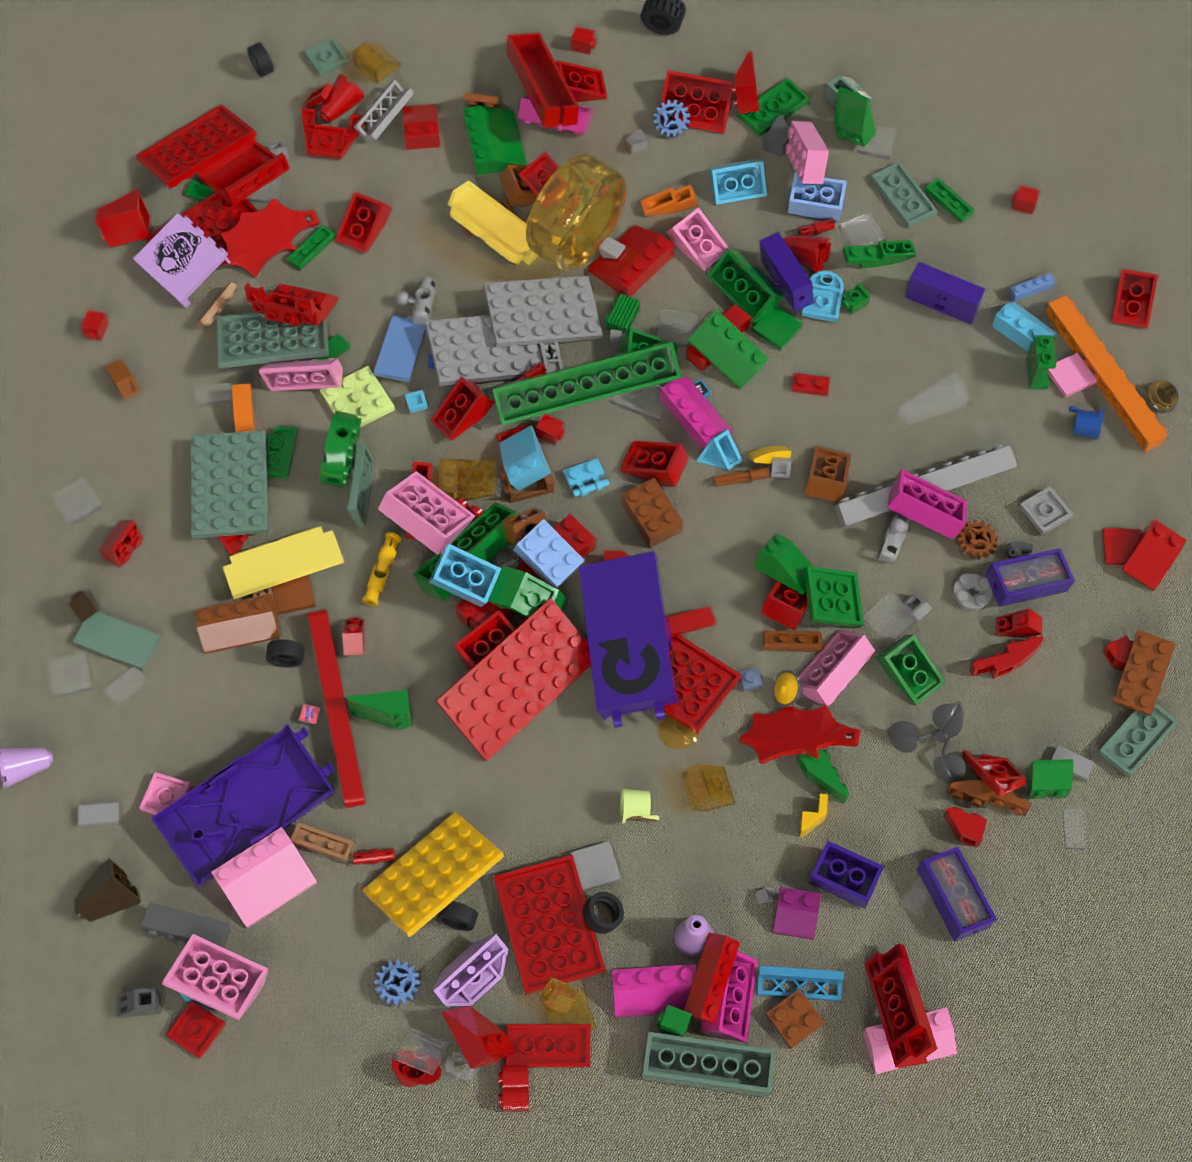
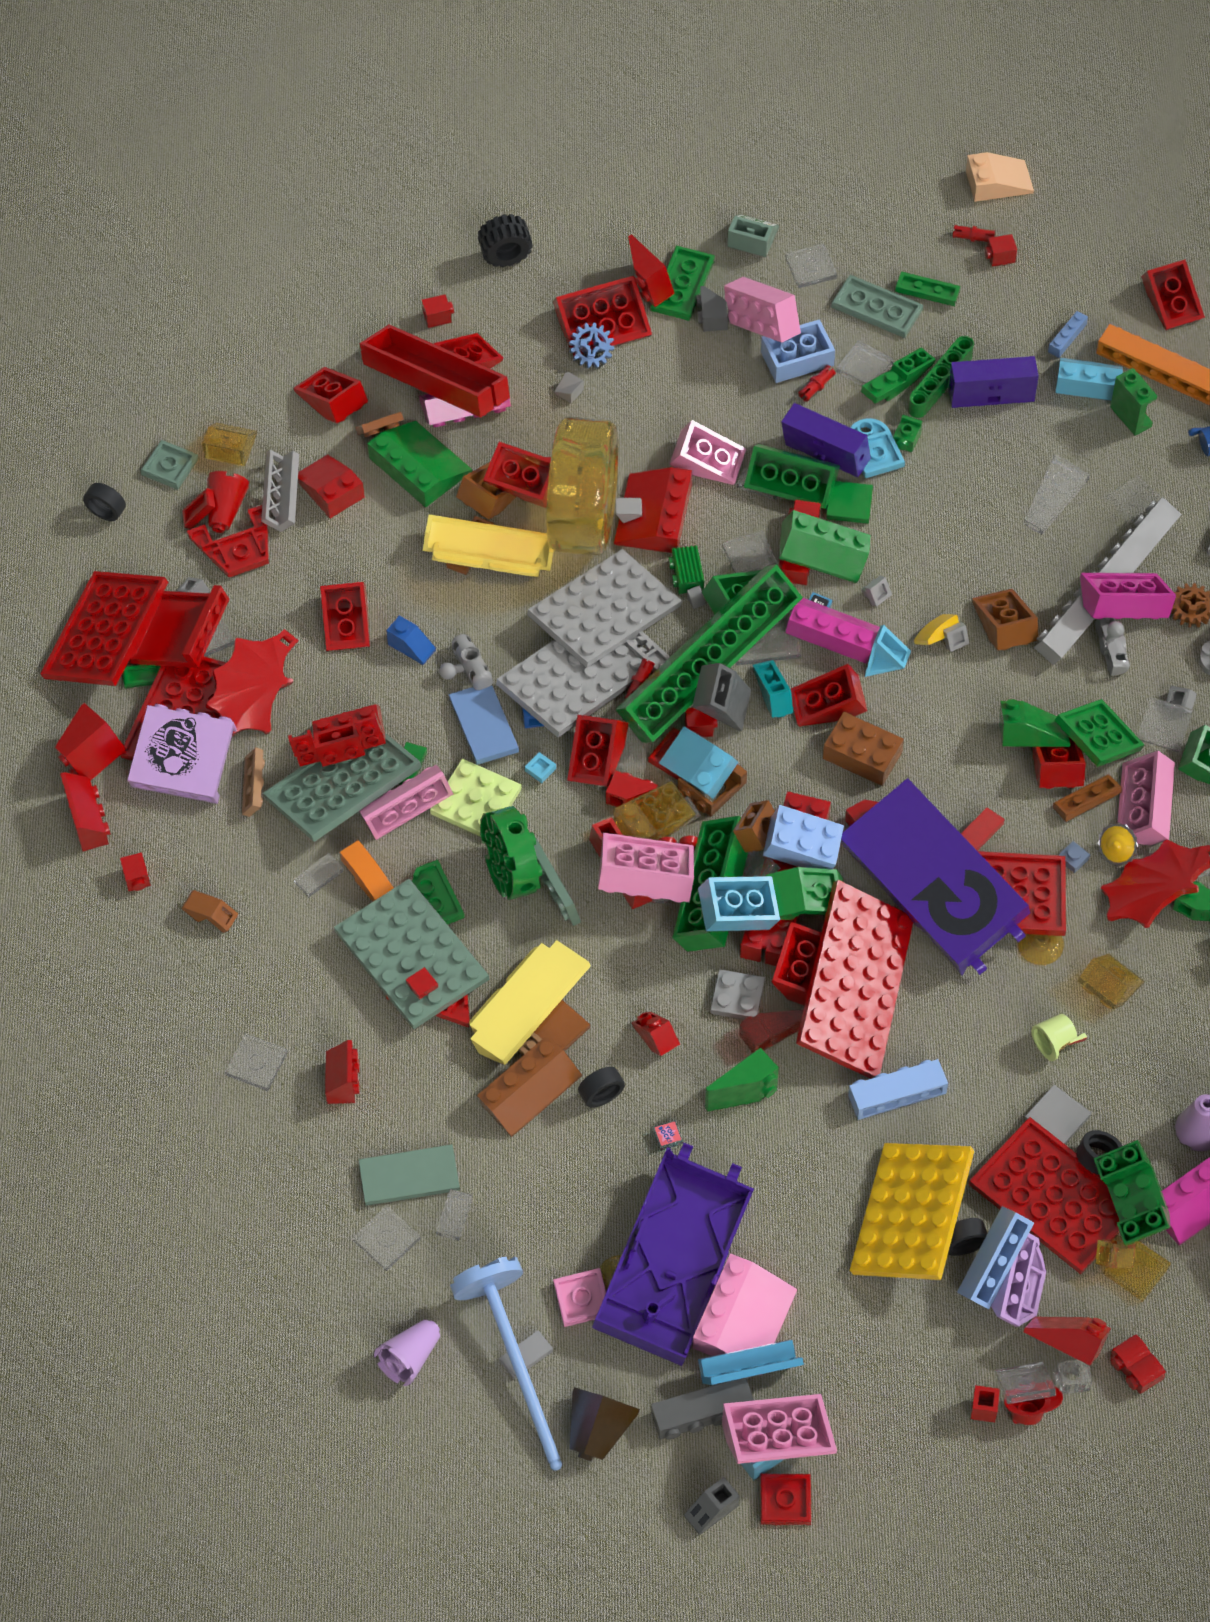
camera: 30 degrees left, 5 degrees down
(83, 605) = (354, 1156): dark brown slope -> none
(90, 264) = (86, 811): none -> red slope
(101, 745) = (486, 1281): none -> light blue piece
(215, 508) = (422, 983): none -> red tile
(237, 915) = (748, 1362): none -> dark azure fence
(311, 247) = (307, 671): green tile -> none
(322, 842) = (777, 1247): medium nougat plate -> none
(336, 709) = (690, 1111): red beam -> none
(374, 856) = (836, 1232): red pin -> none
(380, 1048) = (985, 1404): none -> red brick
(385, 559) = (628, 940): yellow piece -> none
(393, 263) = (409, 640): none -> blue slope
(405, 980) = (946, 1326): medium blue gear -> none
(431, 679) = (769, 1028): none -> clear red slope
(432, 642) = (737, 994): none -> light grey plate
(462, 448) = (626, 787): none -> red slope
(463, 945) = (995, 1257): none -> light blue brick
(468, 63) = (332, 394): none -> red slope
(493, 777) = (897, 1089): none -> light blue brick
(549, 1045) = (1141, 1305): red tile -> none
(573, 419) = (722, 695): none -> dark grey slope
(584, 473) = (765, 746): medium azure plate -> none
(601, 960) = (1134, 1192): none -> green slope
(620, 433) = (773, 689): none -> teal slope
(669, 201) = (650, 431): orange slope -> none
(737, 181) = (704, 375): medium azure slope -> none
(742, 476) = (928, 662): dark orange axle -> none
(748, 403) = (877, 590): none -> light grey tile
(810, 250) = (831, 404): red cone -> none
(810, 384) = (923, 541): red plate -> none
(854, 117) = (781, 251): green slope -> none
(904, 269) = (937, 379): none -> green beam
(1013, 176) = (973, 233): none -> red pin
(1064, 143) = (997, 176): none -> light nougat slope
(1071, 375) = (1170, 401): bright pink tile -> none

